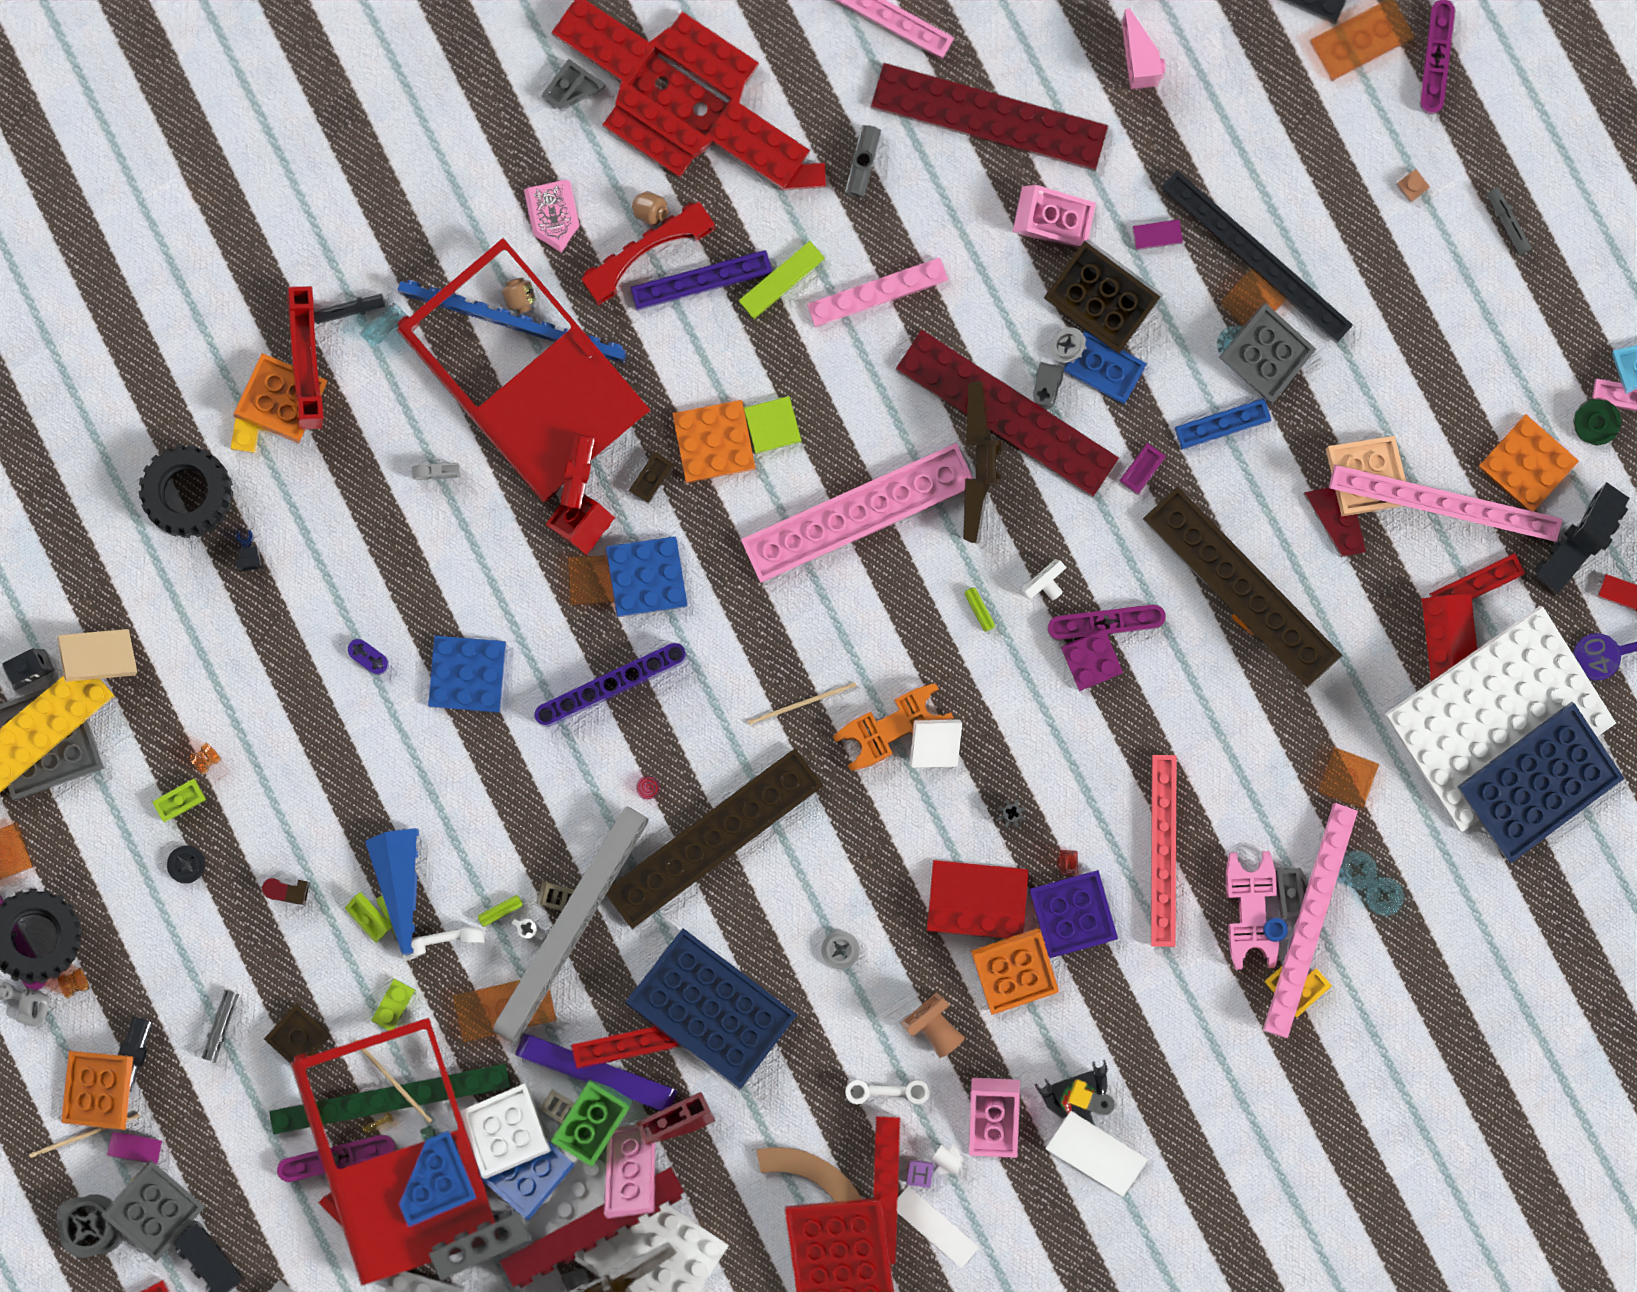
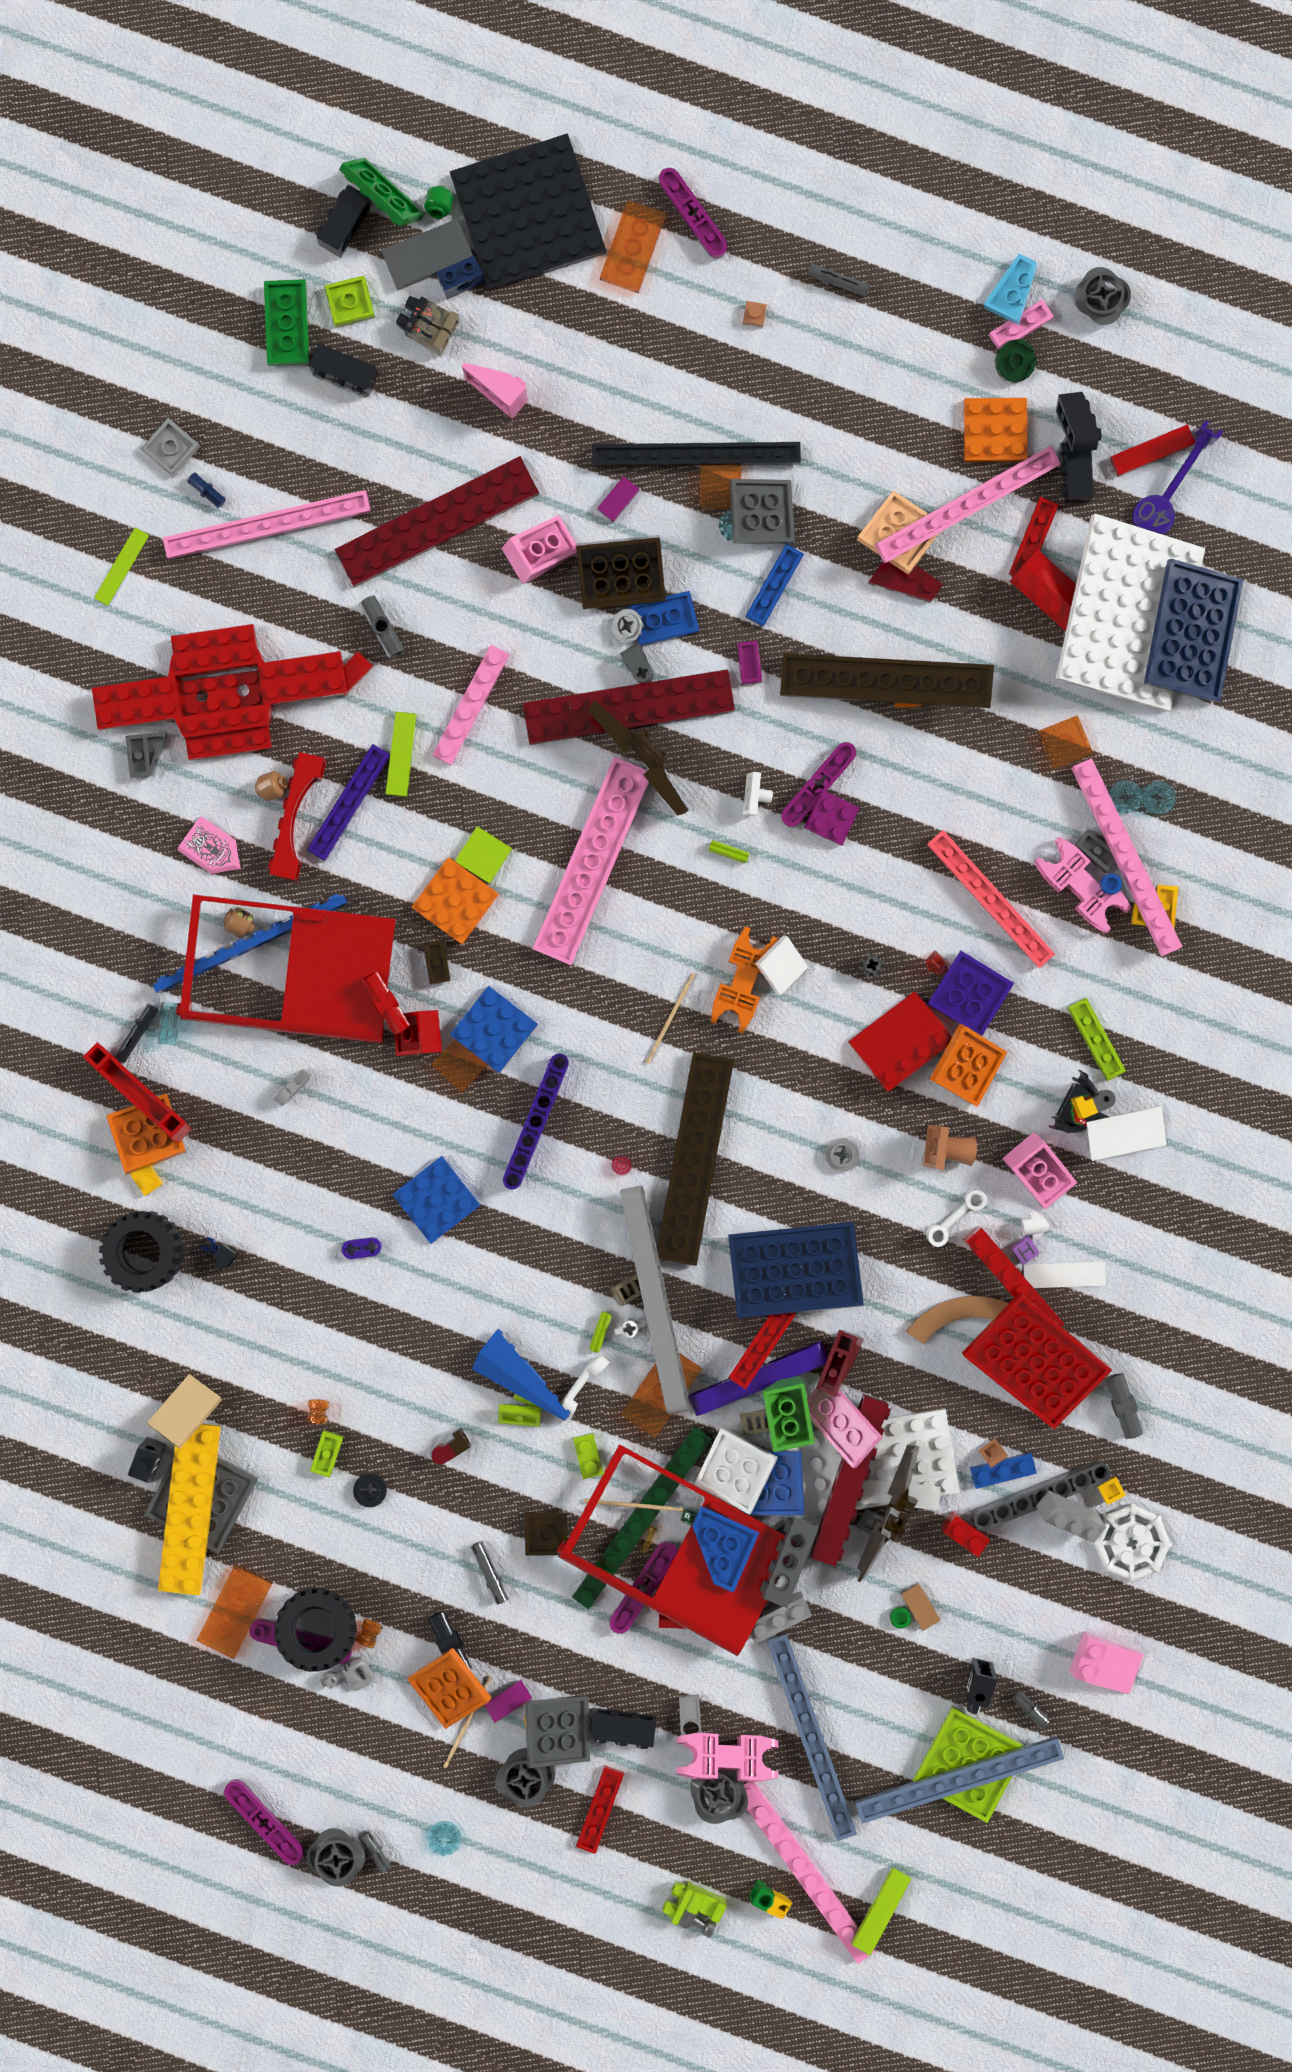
camera: 40 degrees left, 5 degrees up
(1145, 1051) = (1096, 1039): none -> lime tile

